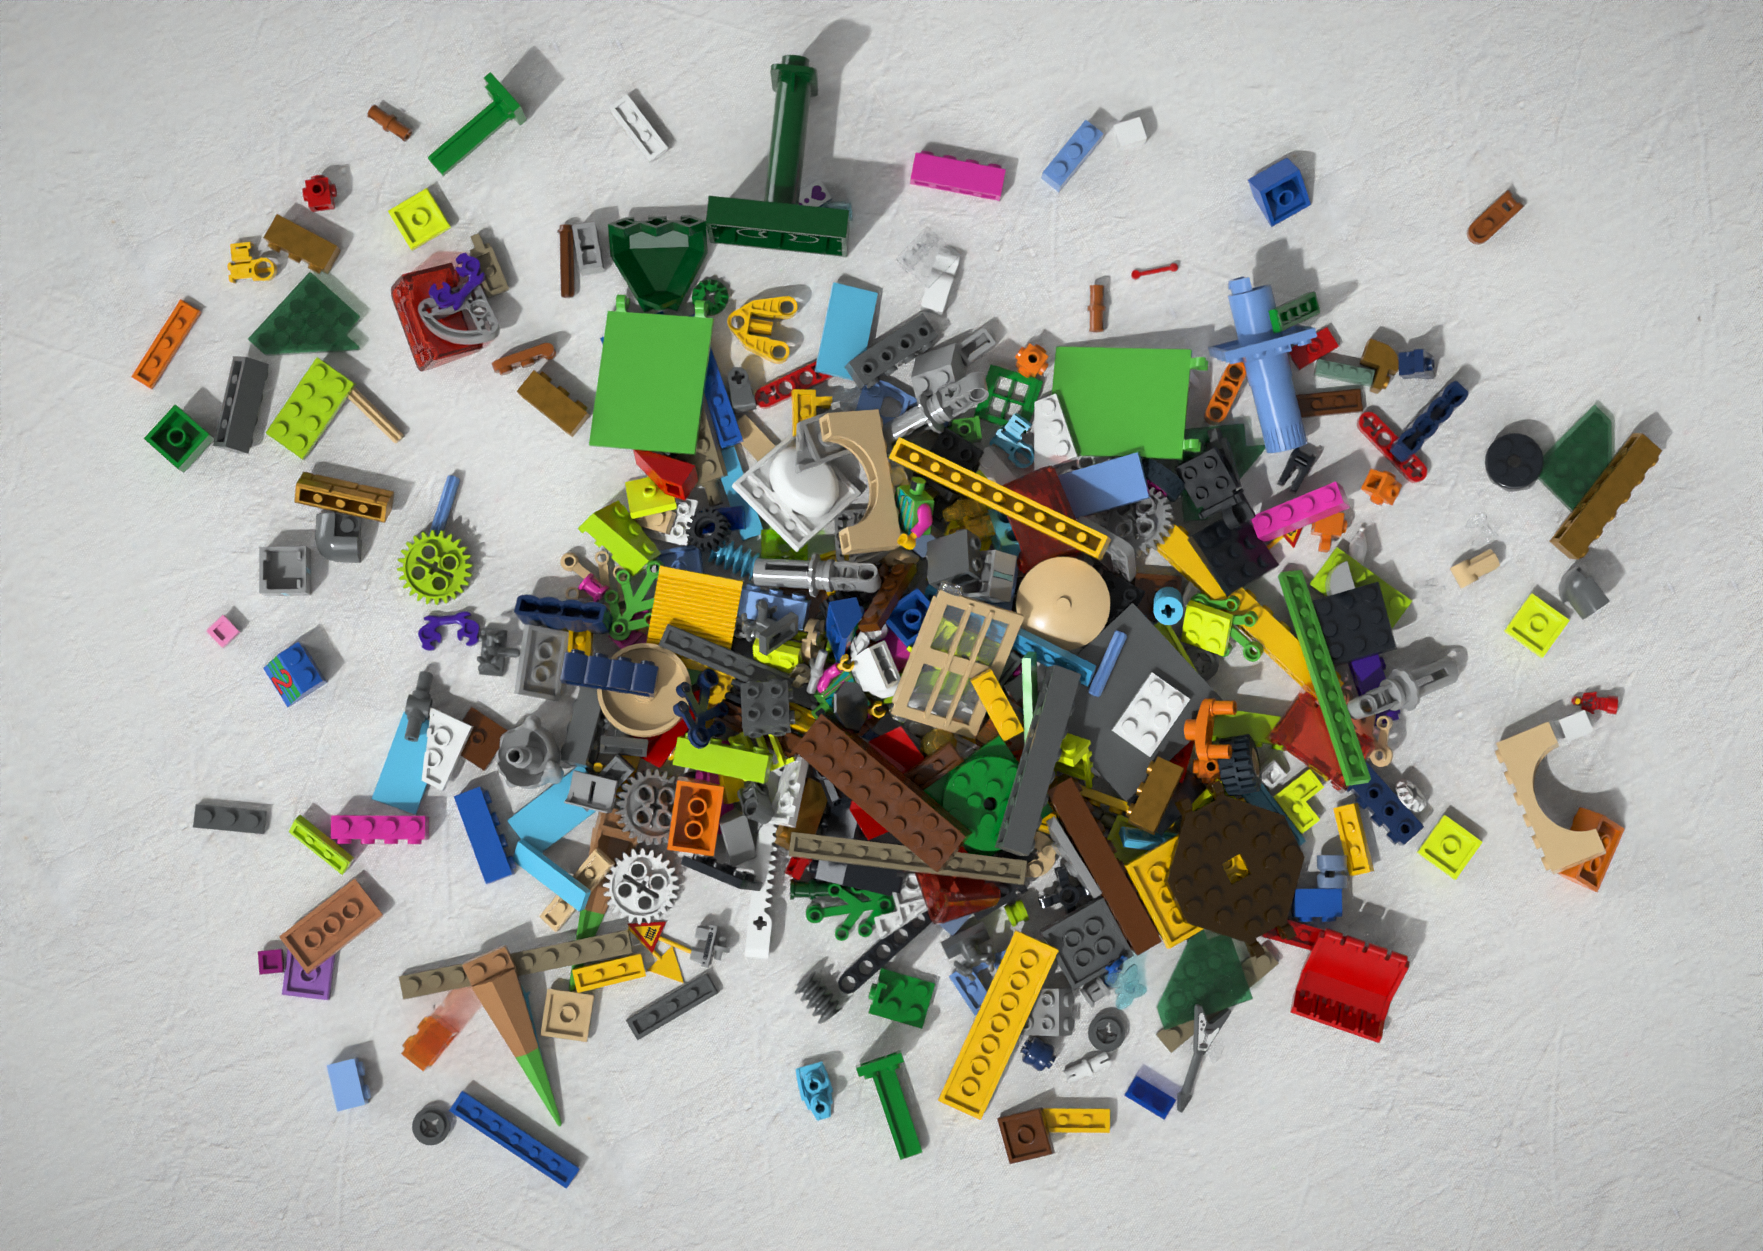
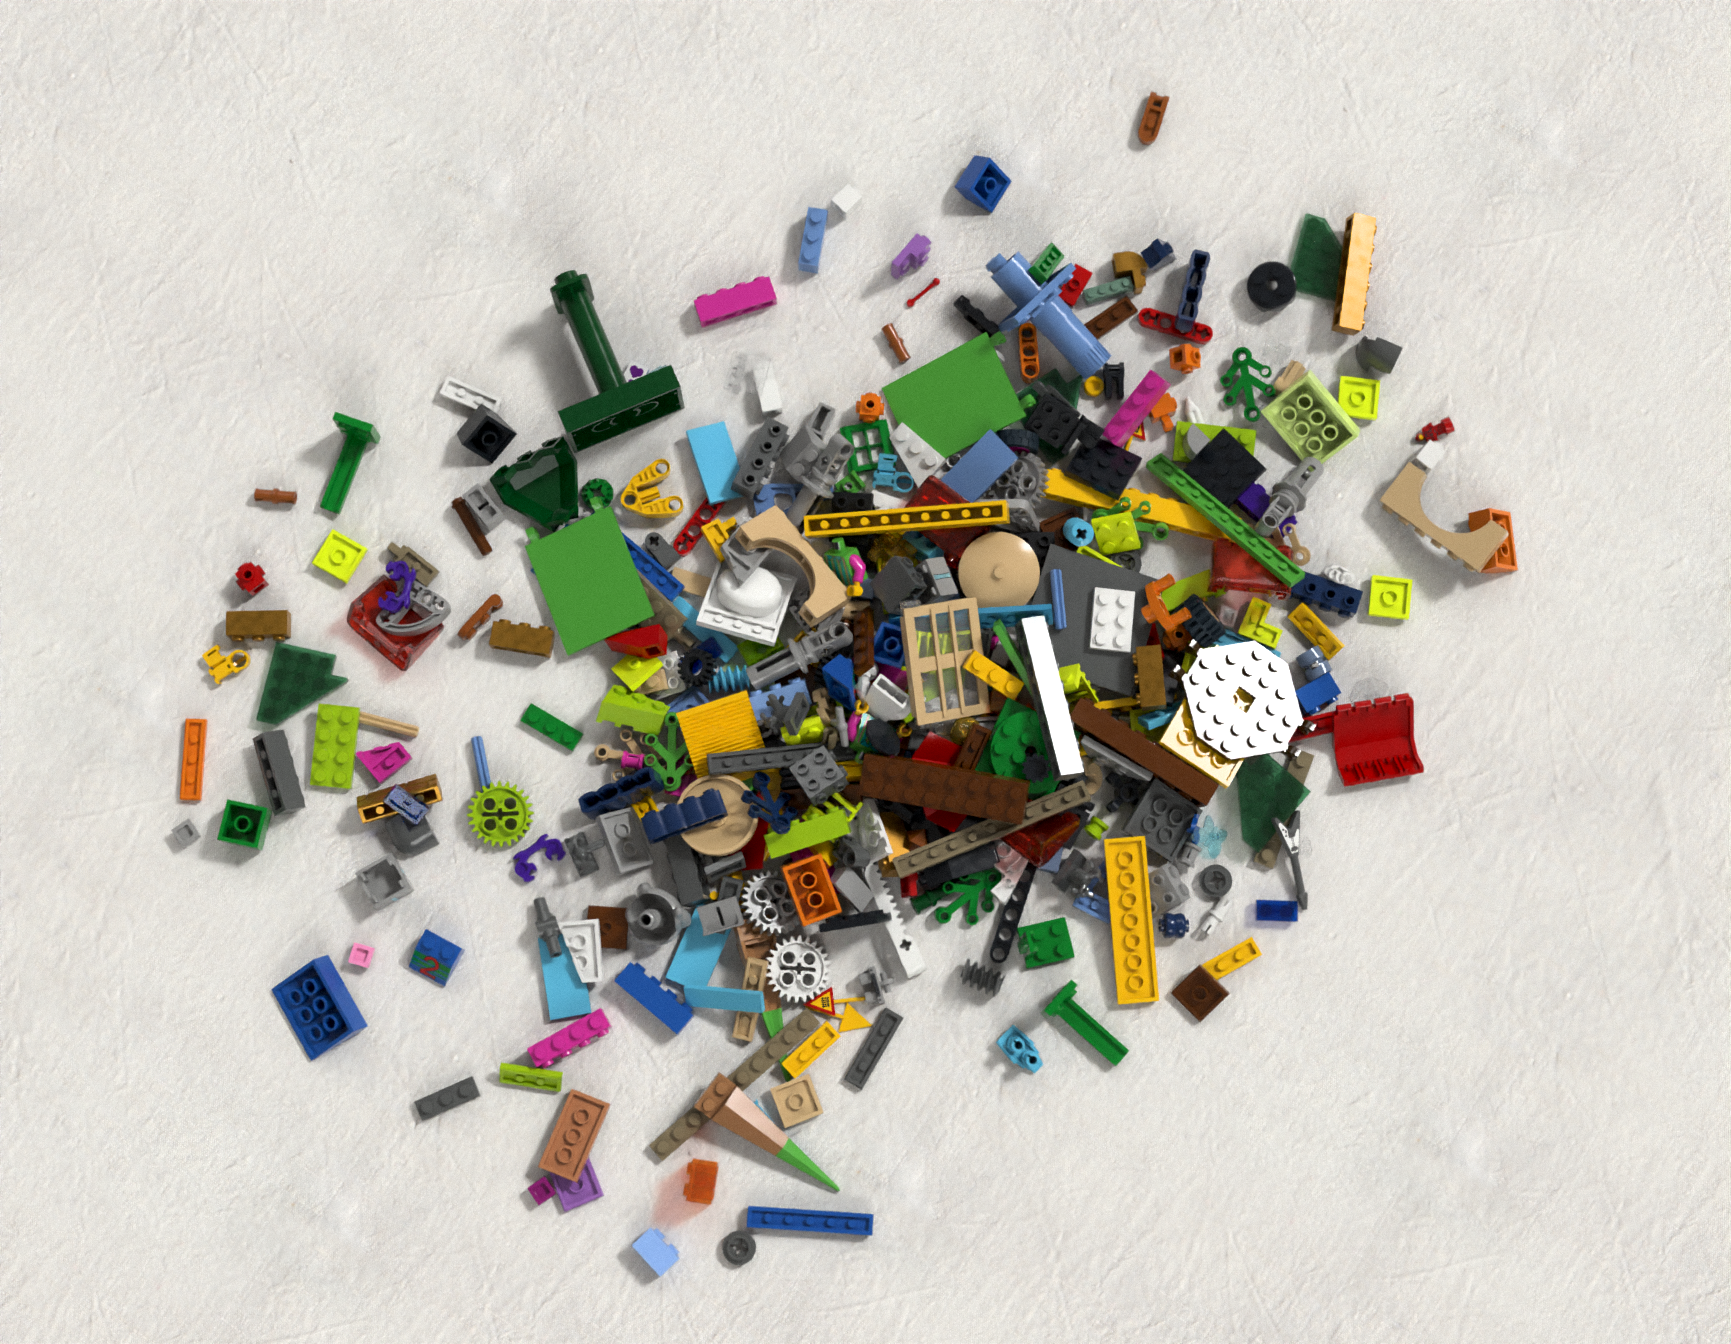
camera: 30 degrees left, 5 degrees down
(119, 414) = (186, 833): none -> light grey plate
(154, 659) = (319, 1007): none -> blue slope
(345, 507) = (406, 804): none -> clear blue plate
(351, 450) = (385, 760): none -> dark pink wing
(534, 508) = (552, 727): none -> green plate
(631, 175) = (486, 433): none -> black slope
(829, 825) = (916, 839): none -> dark orange slope
(984, 824) = (1036, 768): none -> black piece
(1166, 226) = (913, 254): none -> medium lavender plate
(1193, 327) = (976, 316): none -> black hinge
(1272, 464) = (1093, 386): none -> yellow tile
(1430, 545) = (1246, 380): none -> green plant
(1474, 621) = (1310, 419): none -> yellowish green slope

